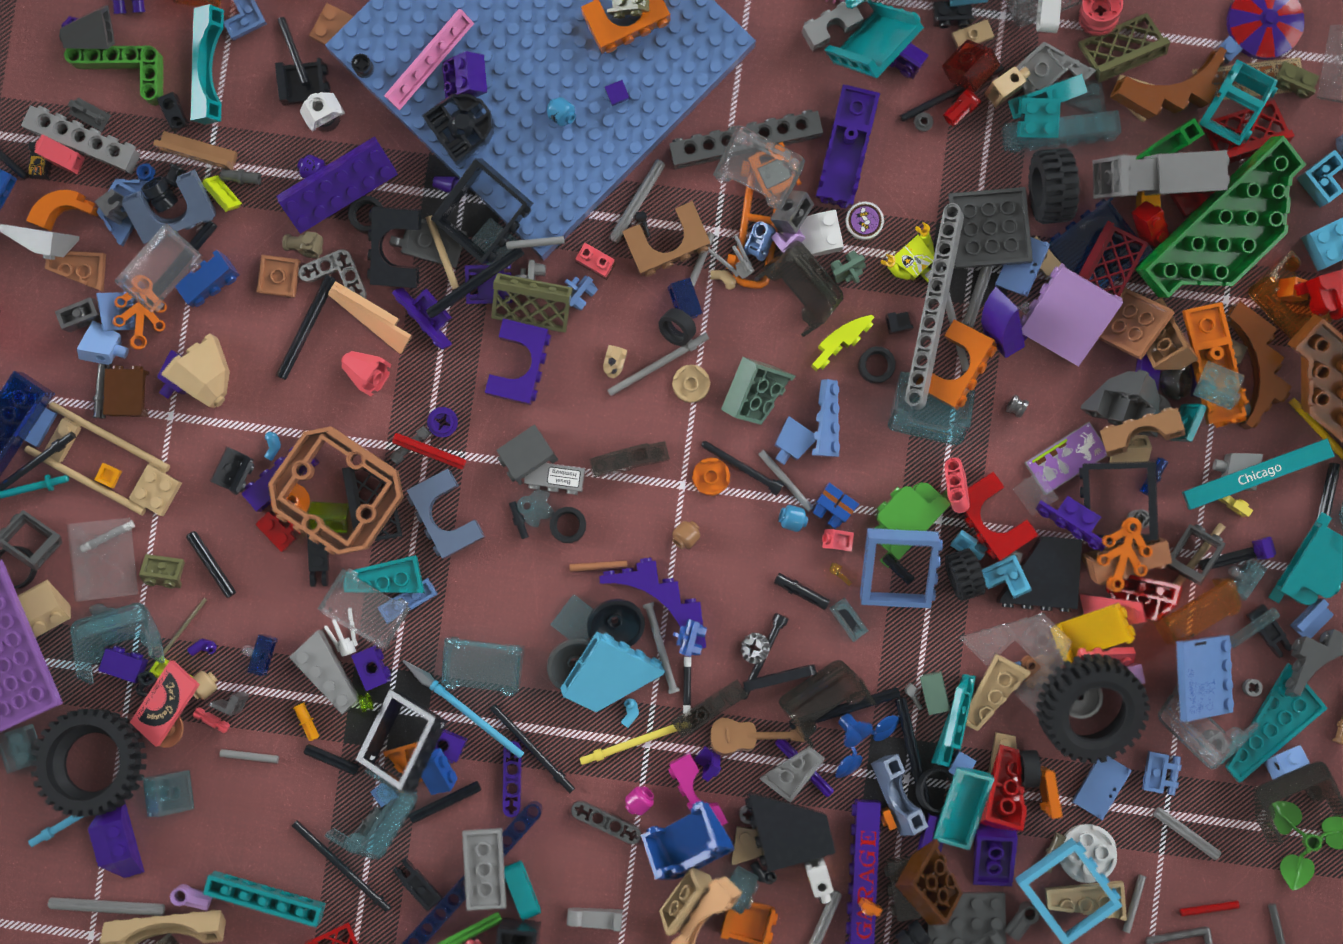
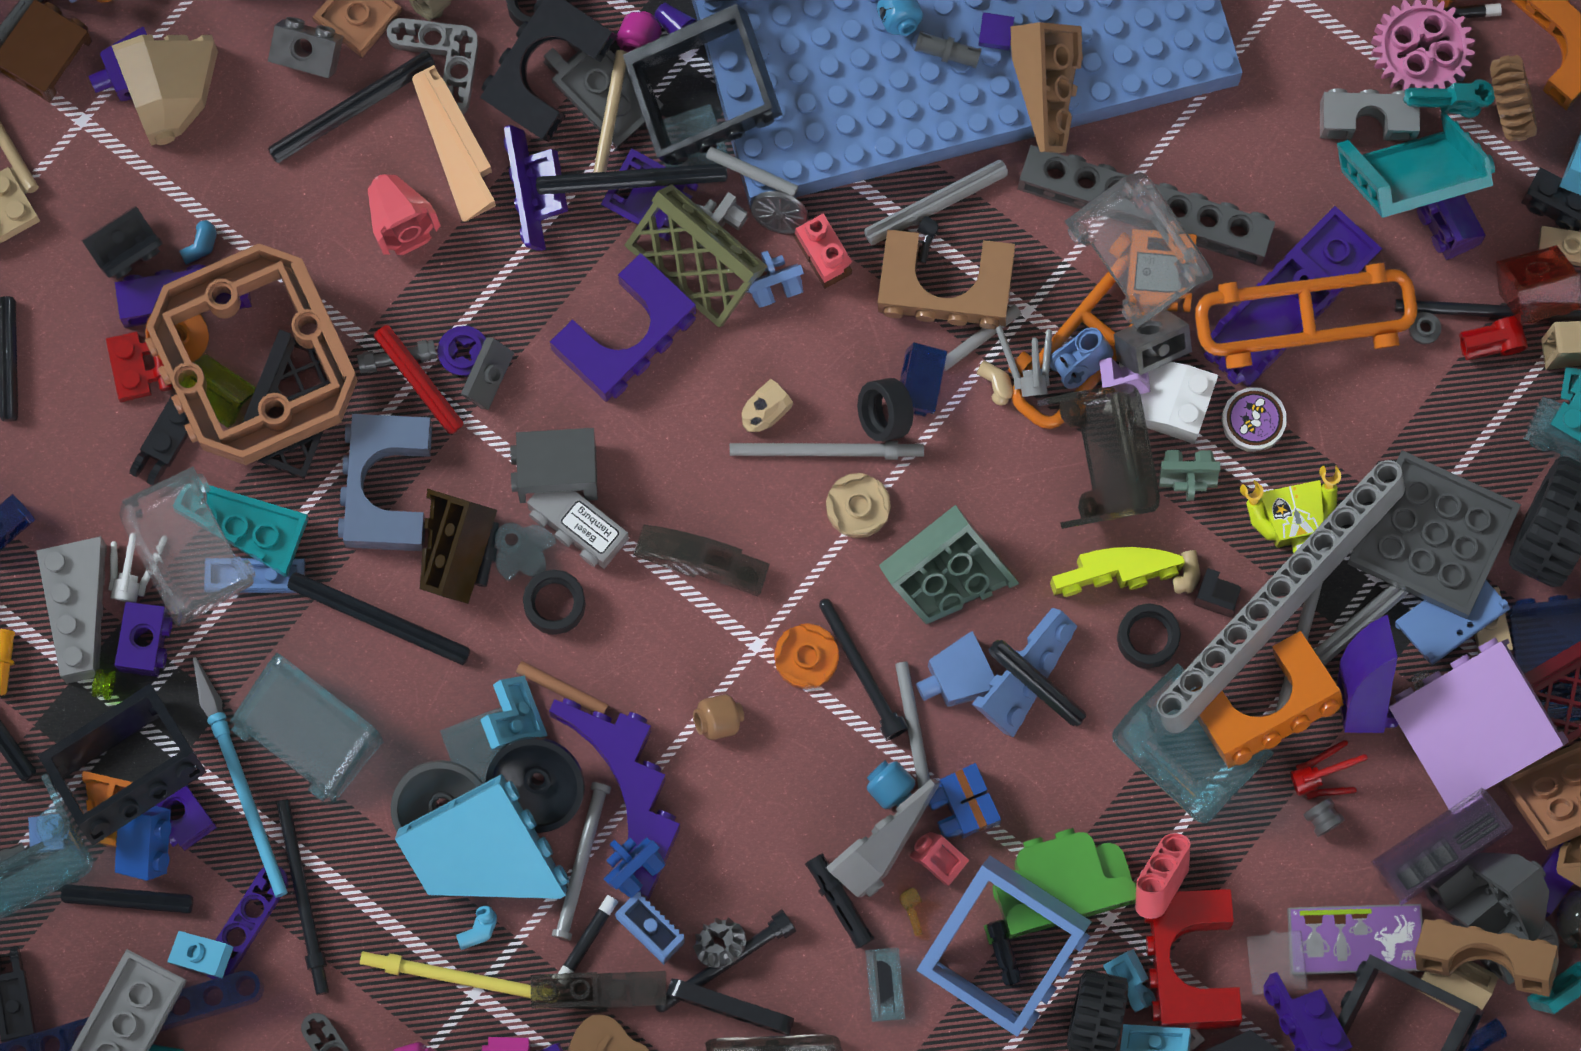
camera: 30 degrees right, 10 degrees down
(254, 318) = (287, 50): none -> flat silver brick
(430, 200) = (637, 30): none -> dark pink head
(462, 427) = (487, 373): none -> dark grey plate
(484, 586) = (378, 618): none -> black axle
(500, 809) = (200, 954): none -> medium azure plate
(501, 526) = (455, 545): none -> dark brown wedge
(561, 254) = (779, 212): none -> flat silver wheel
(587, 595) = (519, 714): none -> medium azure plate
(598, 117) = (947, 49): none -> dark grey pin
(654, 98) = (1046, 67): none -> medium nougat wedge
(717, 662) = (650, 927): none -> medium blue brick
(805, 564) = (871, 858): none -> light grey wedge
(837, 424) = (1037, 682): none -> black axle
(879, 319) = (1191, 573): none -> tan arm
(906, 138) = (1238, 353): none -> orange bar
(997, 392) = (1308, 779): none -> red plant
(1087, 388) = (1442, 846): none -> clear purple brick

